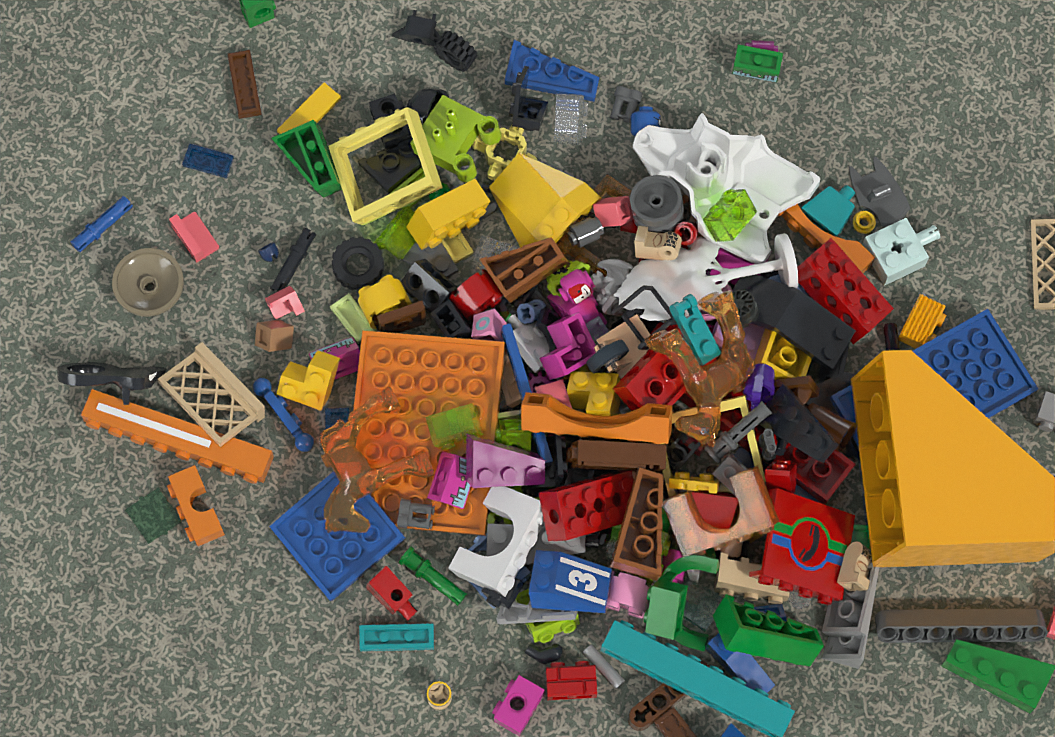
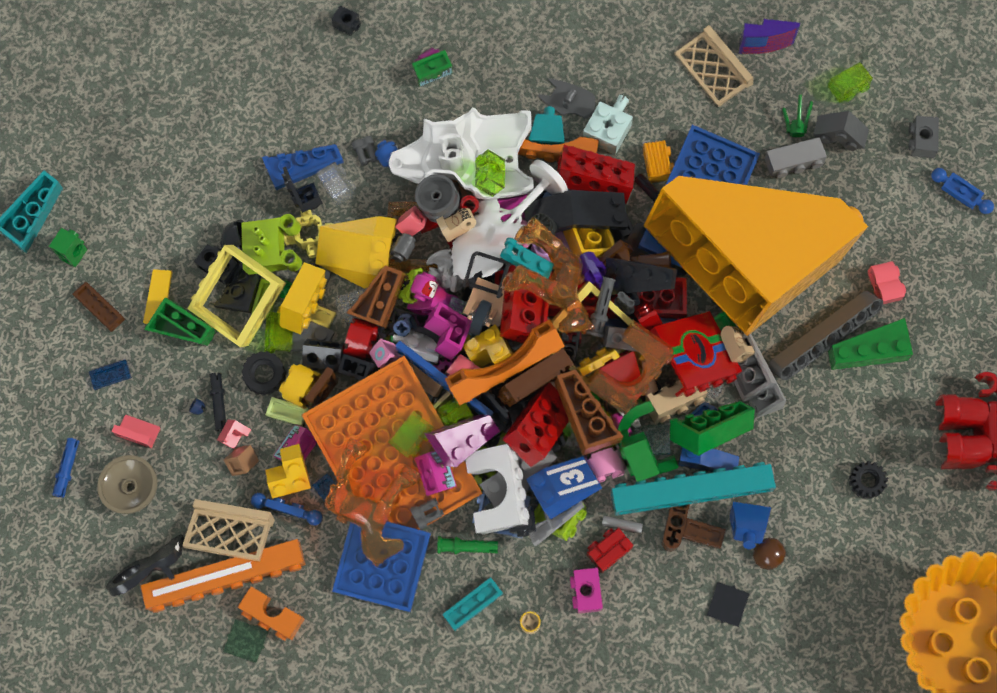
camera: 30 degrees left, 0 degrees up
(386, 583) = (440, 574): red torso -> none
(419, 30) = (194, 193): black piece -> none
(455, 51) = (228, 189): black tyre -> none
(545, 655) = (579, 545): black arm -> none
(864, 215) = (573, 118): yellow plate -> none

